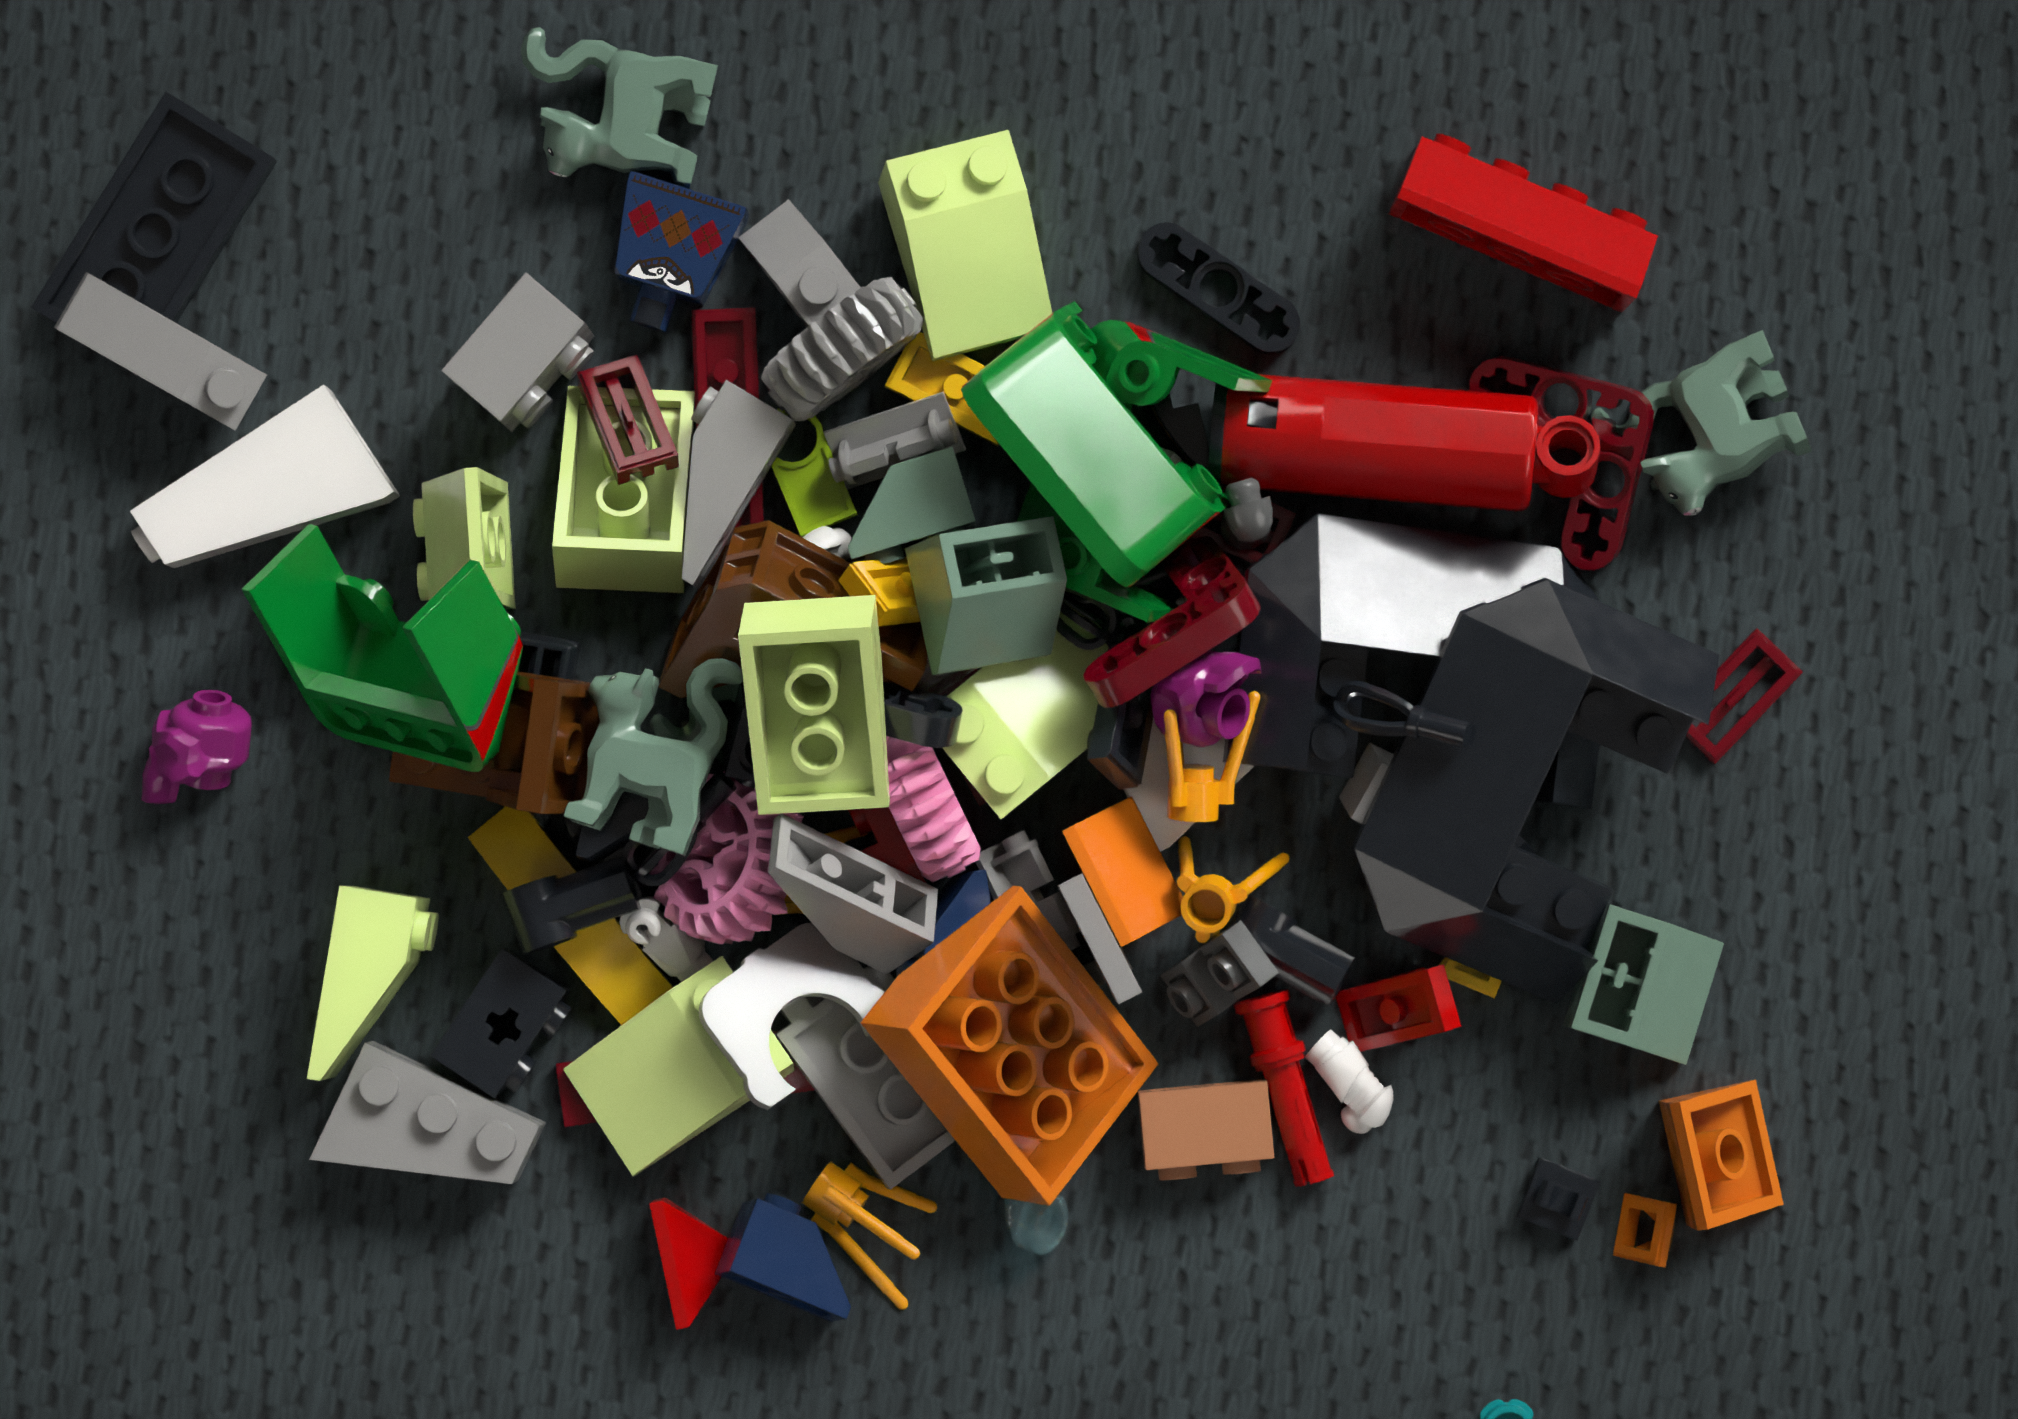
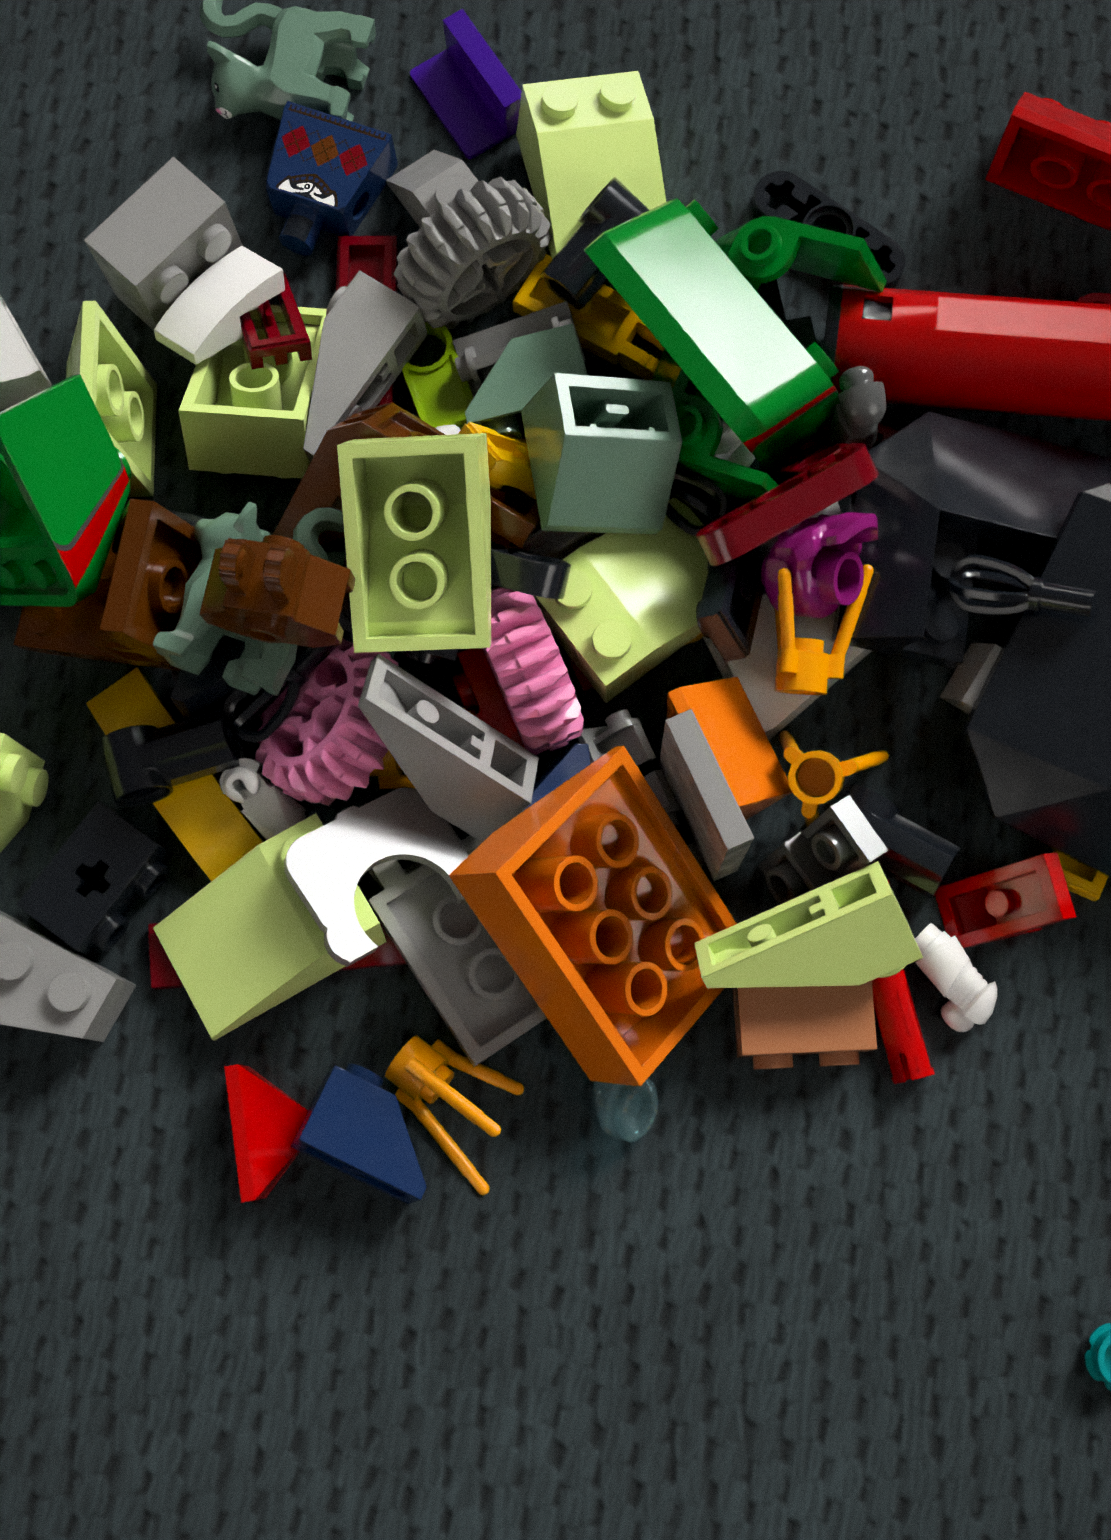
camera: 10 degrees right, 10 degrees down
(576, 414) = (210, 308): none -> white slope
(686, 775) = (276, 592): none -> reddish brown hinge
(821, 132) = (469, 88): none -> dark purple panel
(985, 322) = (572, 271): none -> black piece
(1213, 1060) = (822, 938): none -> yellowish green slope

